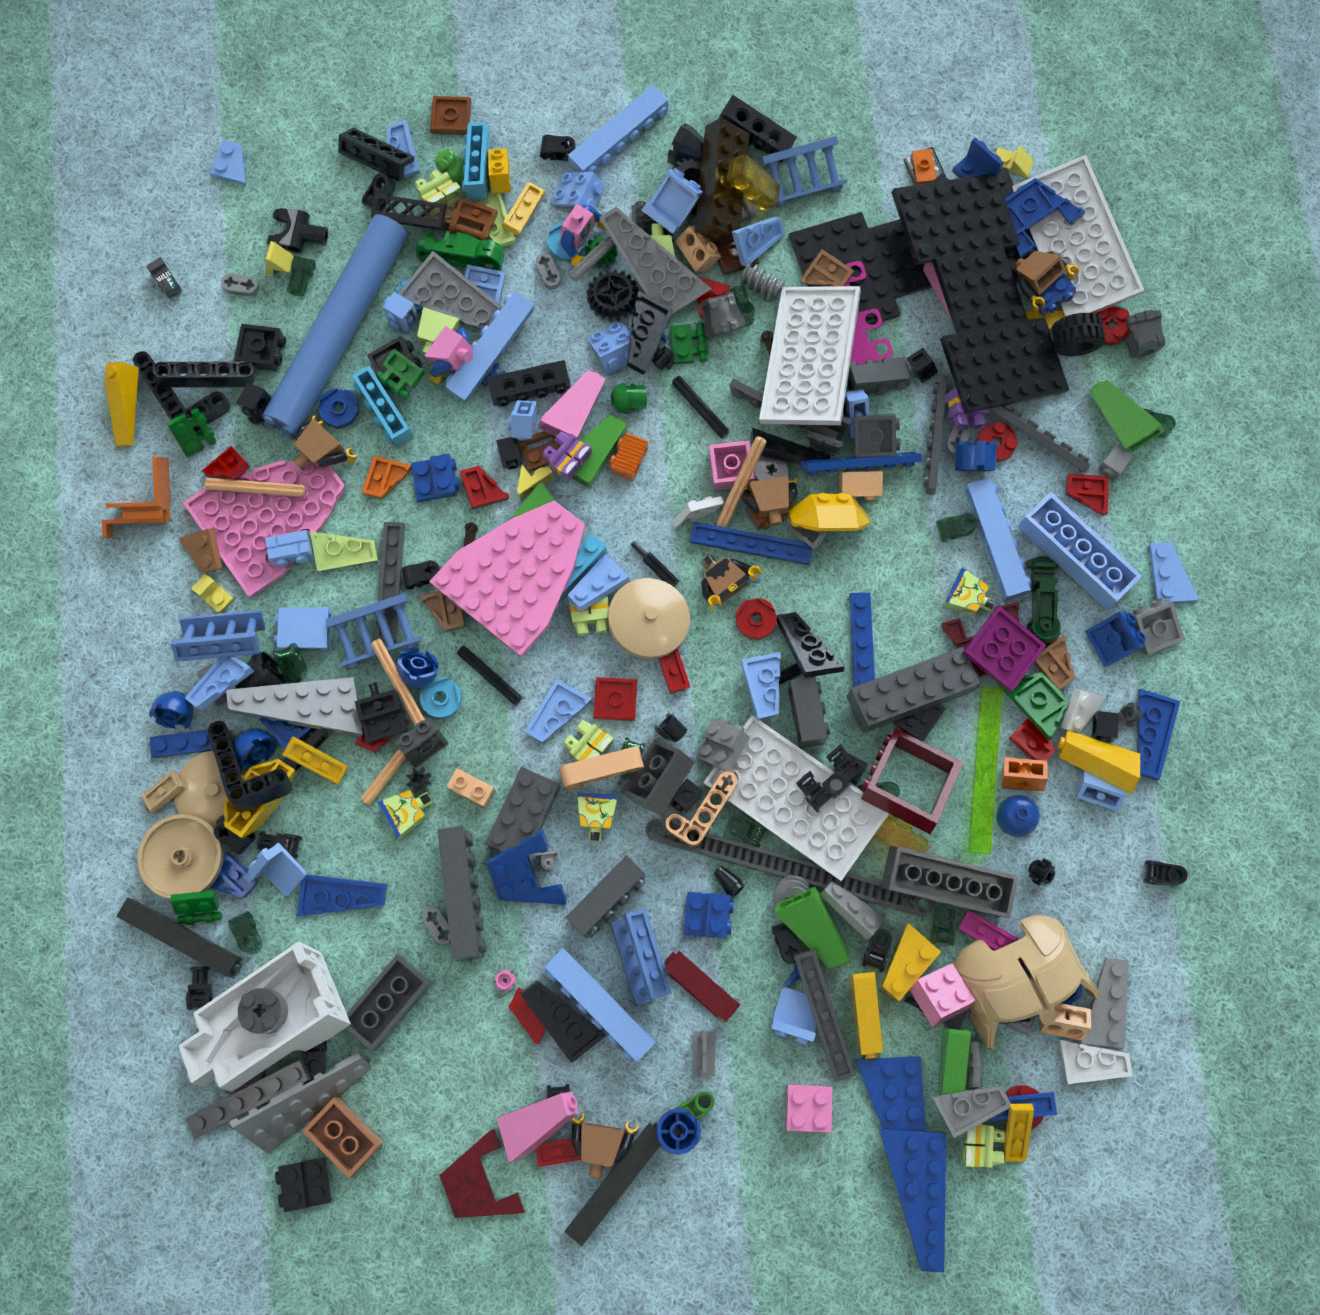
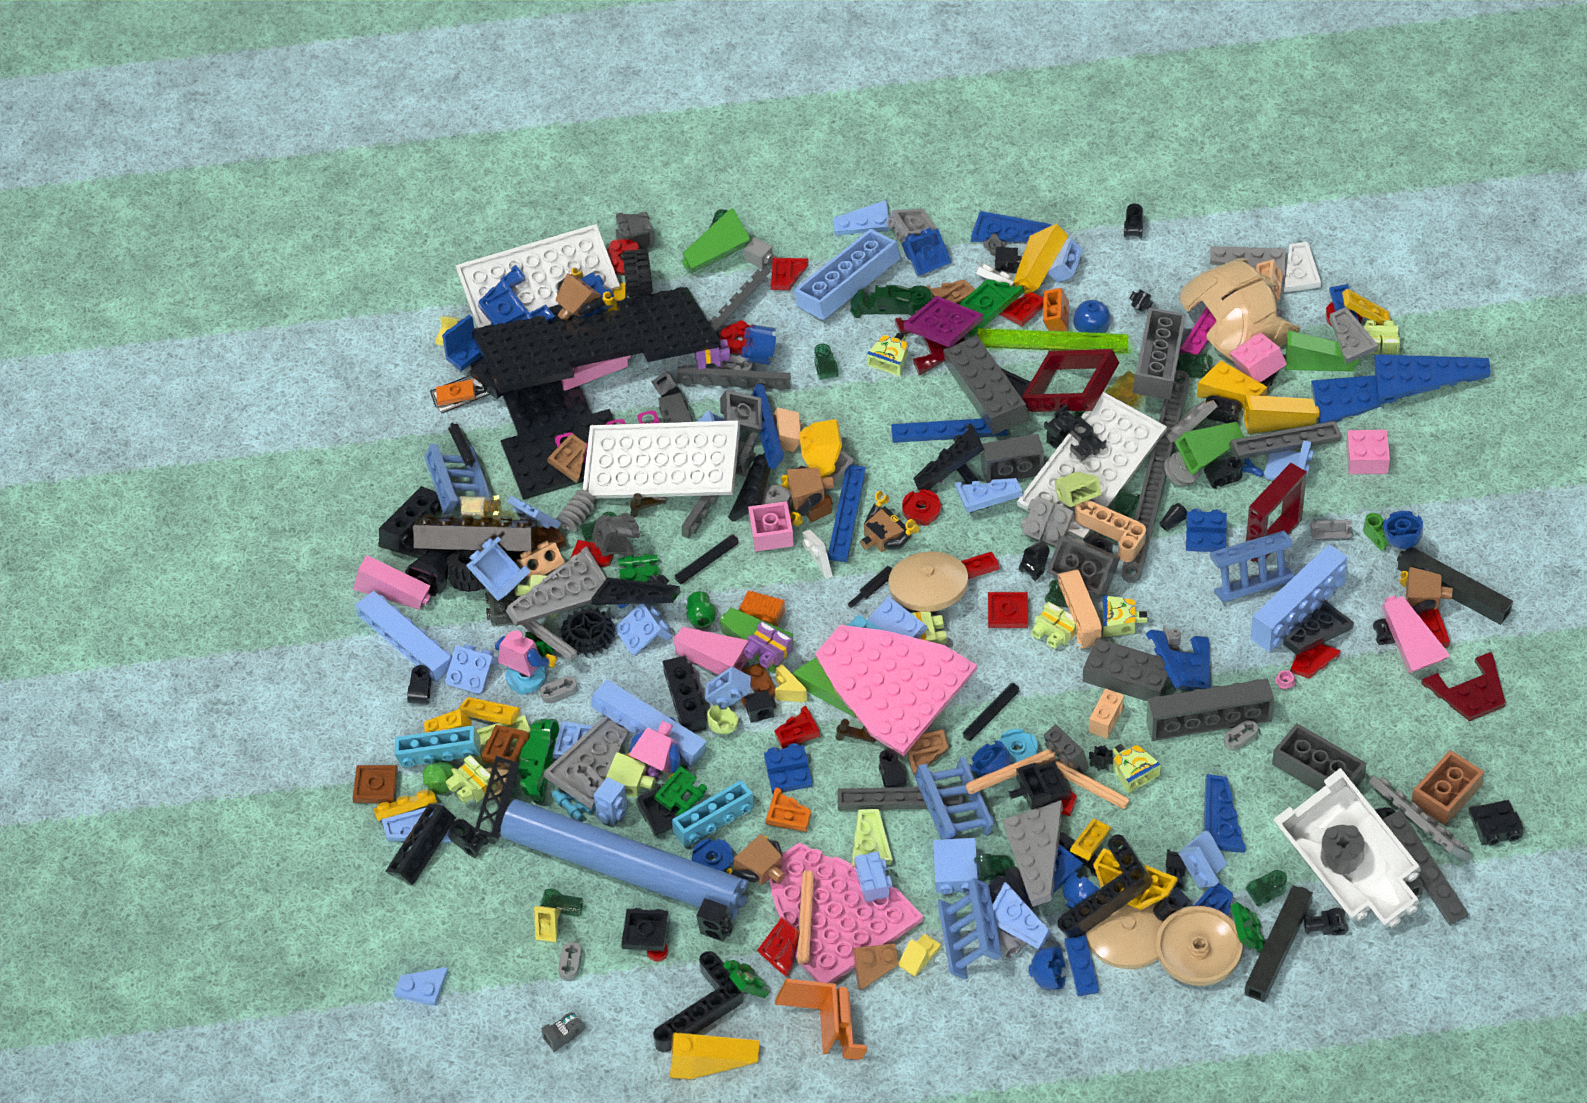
camera: 90 degrees left, 25 degrees down
(163, 791) = (1133, 972): tan plate -> none
(195, 369) = (680, 972): black beam -> none
(297, 230) = (509, 911): black connector -> none
(418, 286) = (586, 780): none -> light grey beam
(422, 139) = (404, 804): none -> yellow plate
(490, 413) = (719, 716): none -> yellowish green hair
(556, 710) = (1020, 654): light blue wing -> none
(606, 896) = (1200, 598): dark grey brick -> none
(679, 112) = (391, 584): none -> bright pink slope
(741, 482) = (793, 509): light nougat axle -> none
(749, 772) = (1077, 488): none -> yellowish green torso
(851, 172) = (461, 444): none -> black axle
(997, 539) = (836, 333): light blue brick -> none

